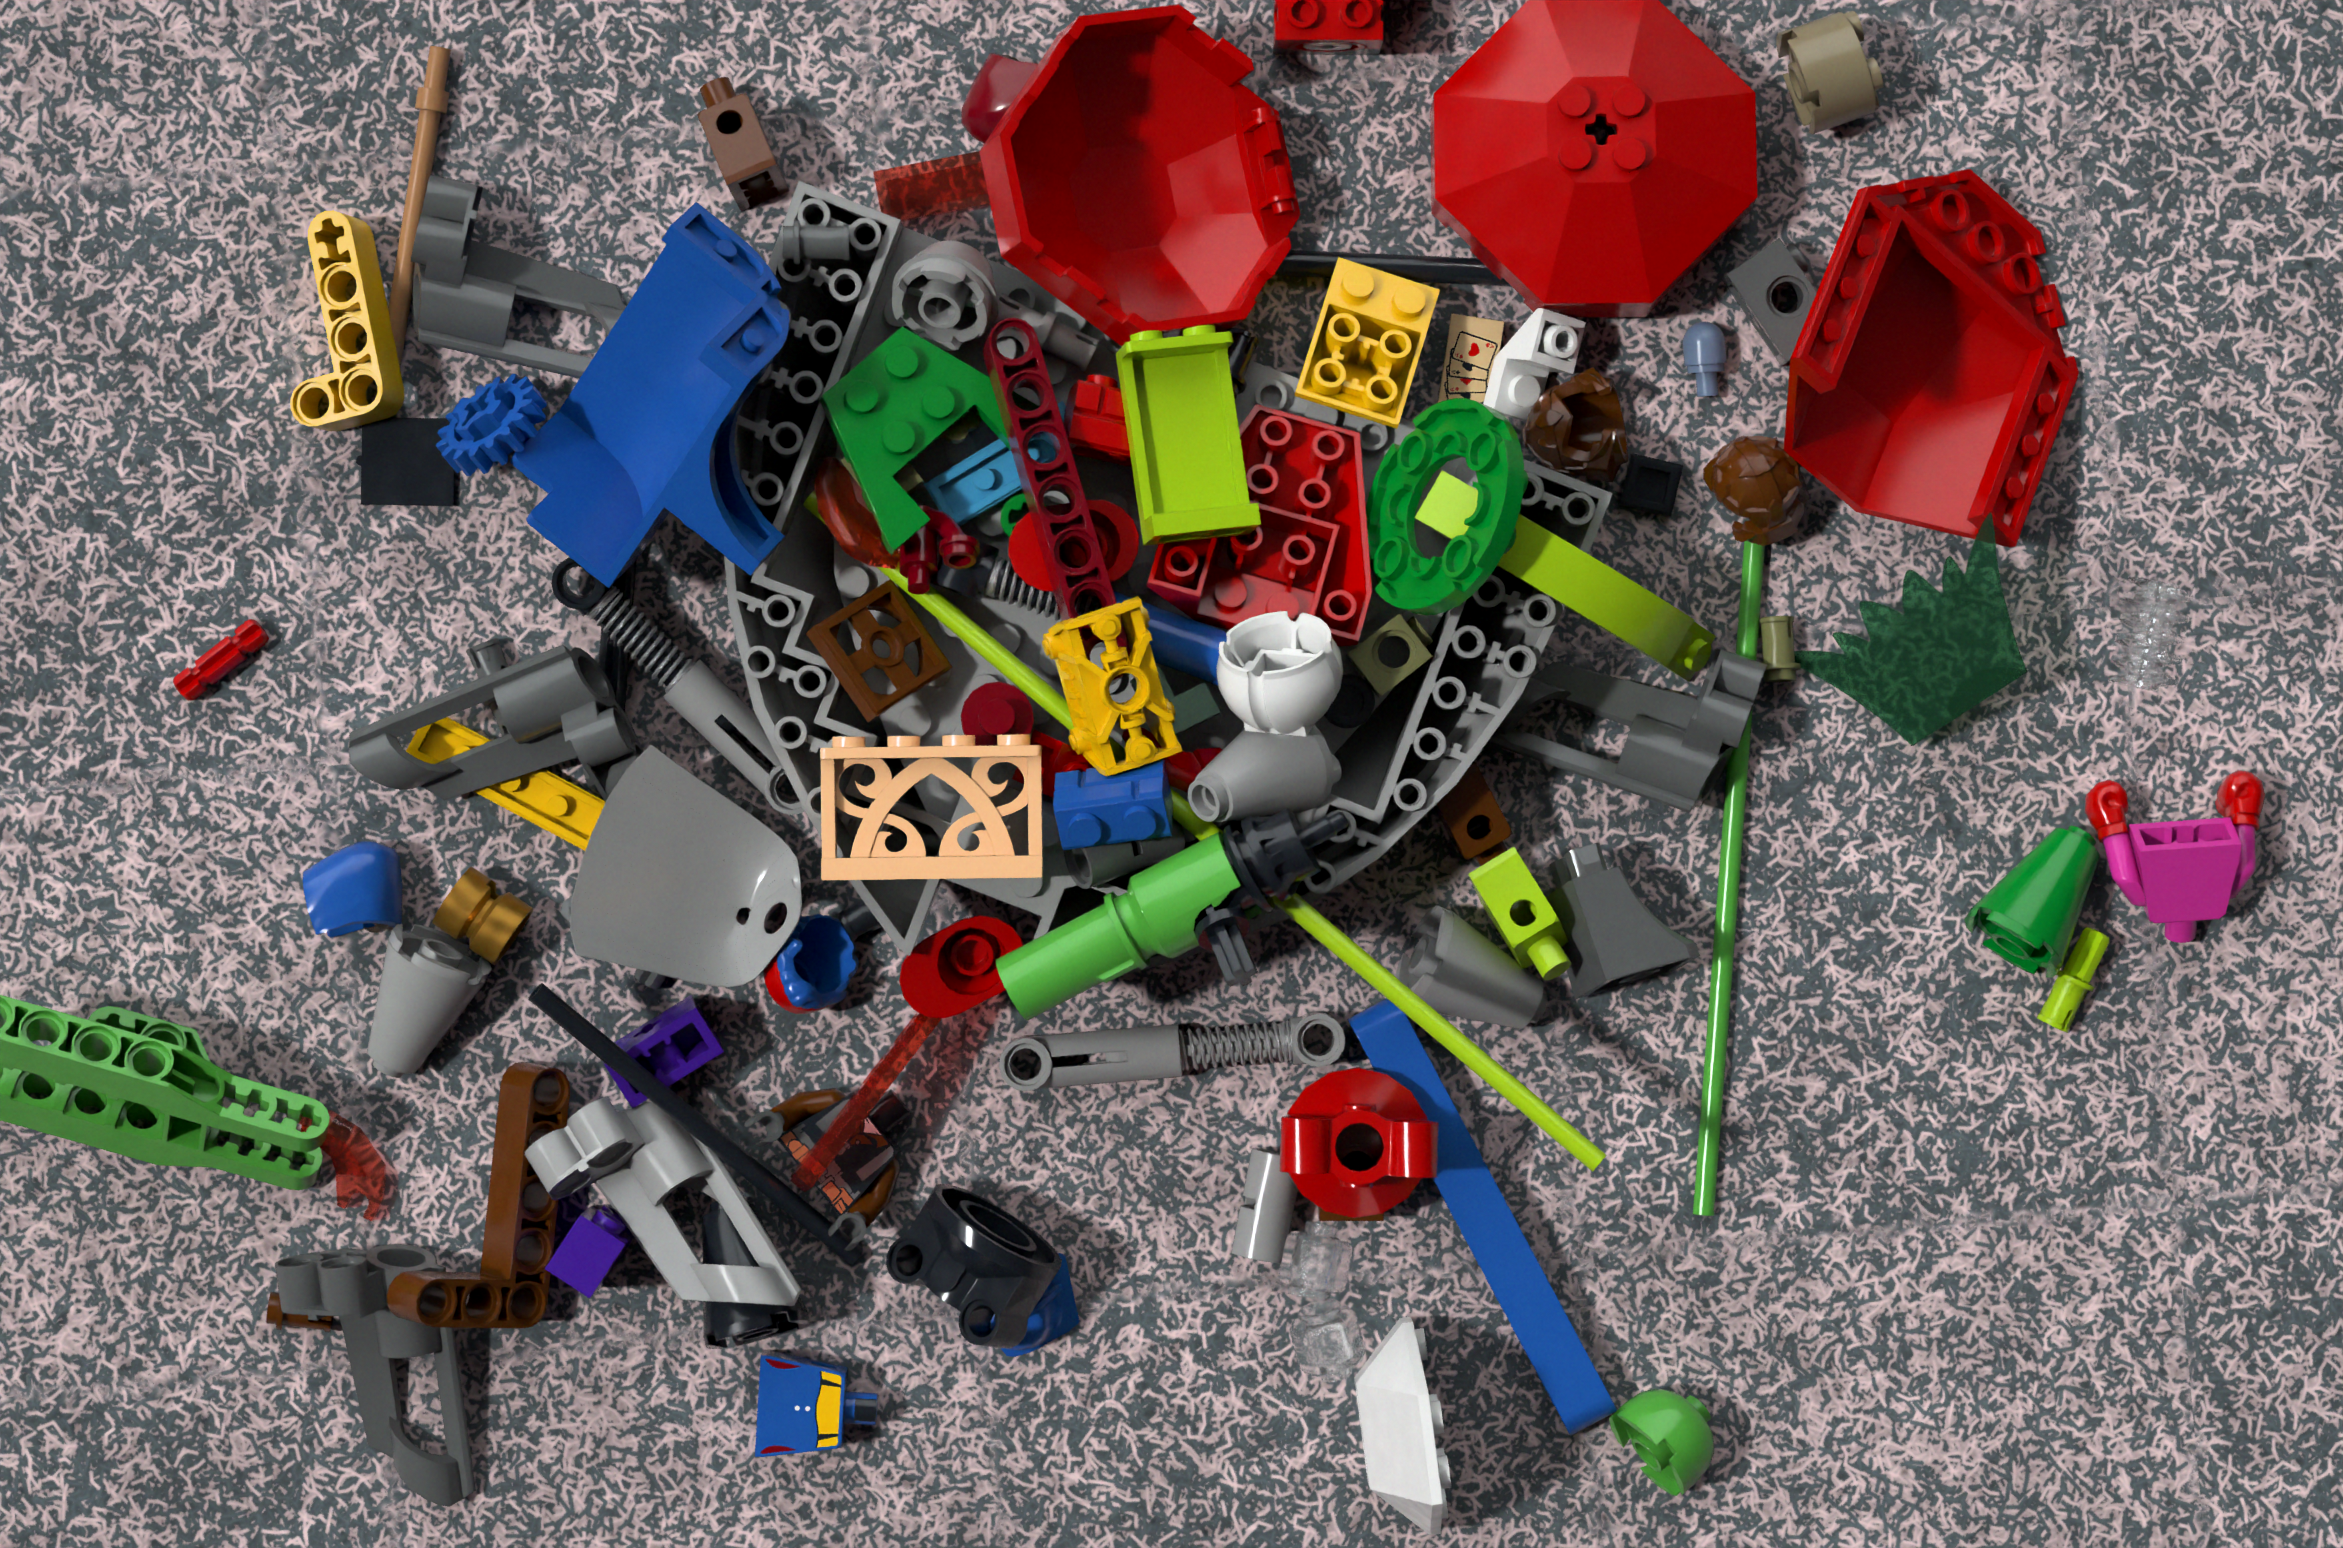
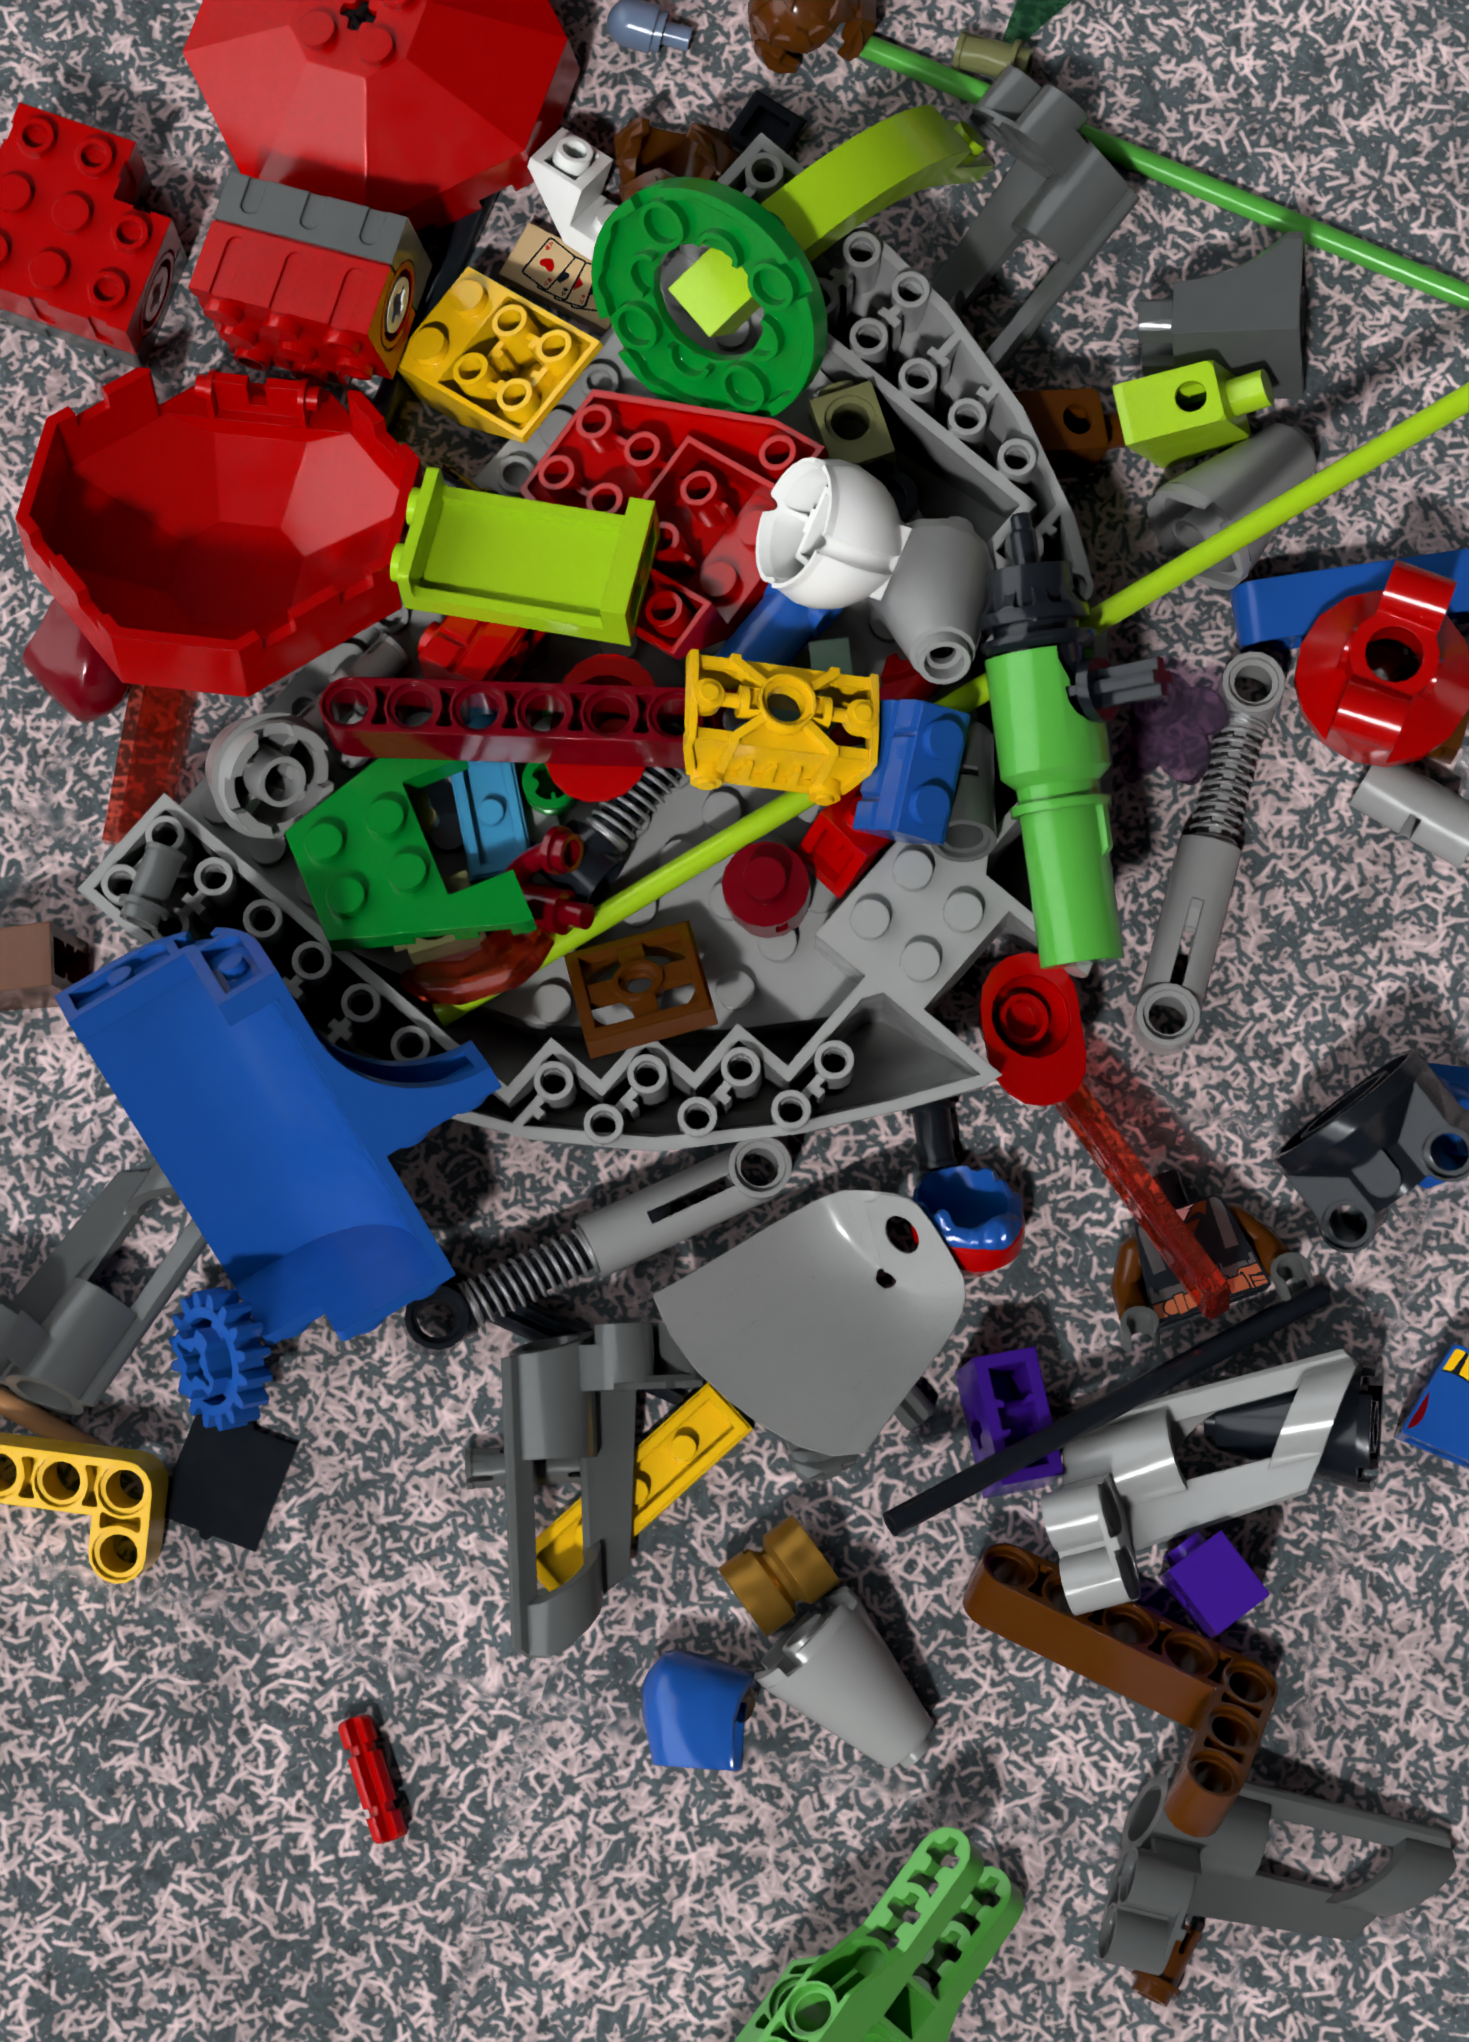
camera: 70 degrees left, 10 degrees down
(355, 1163) = (1018, 1834): clear red piece -> none
(869, 852) = (870, 1068): light nougat fence -> none
(1267, 997) = (1174, 737): none -> clear purple plate
(1368, 171) = (309, 281): none -> red piece

